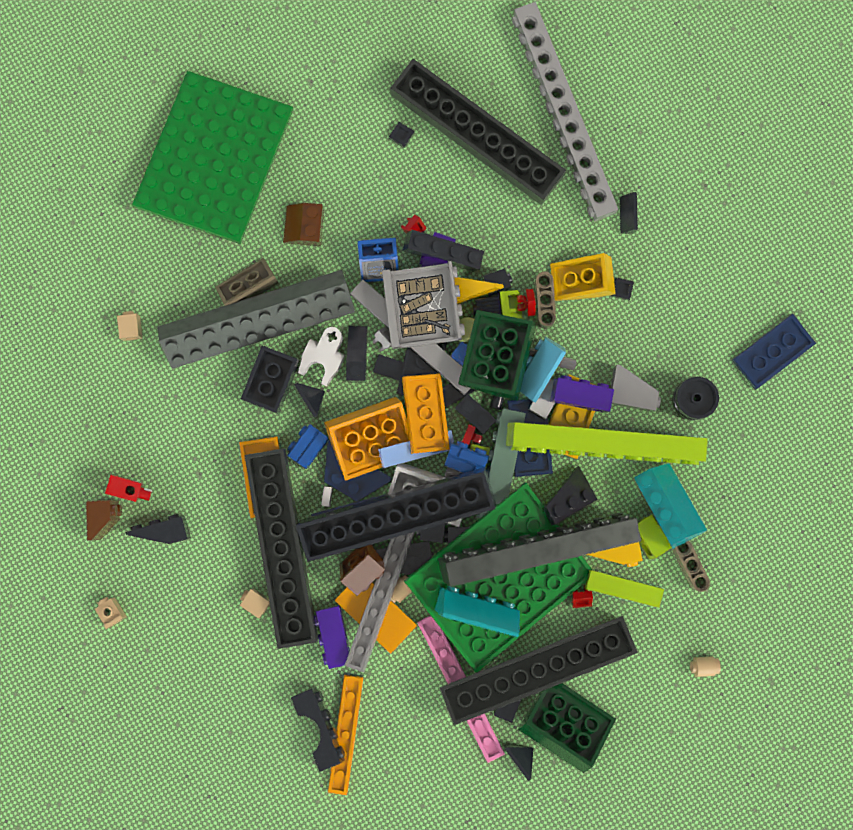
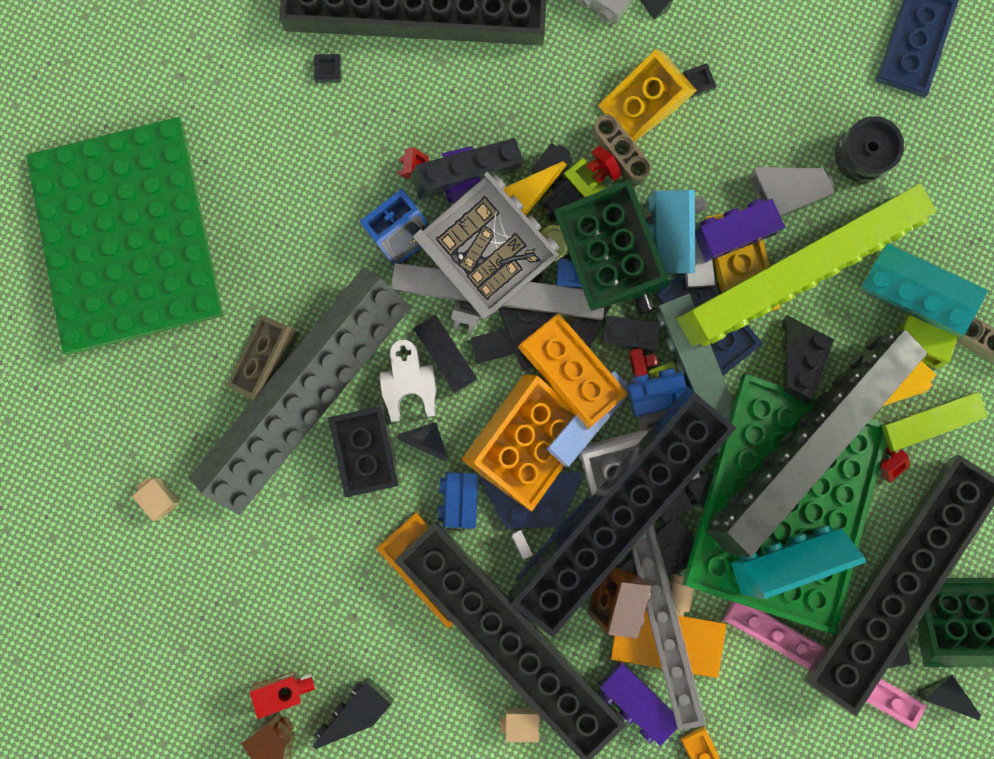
camera: 35 degrees left, 0 degrees up
(304, 224) = (282, 244): reddish brown slope -> none

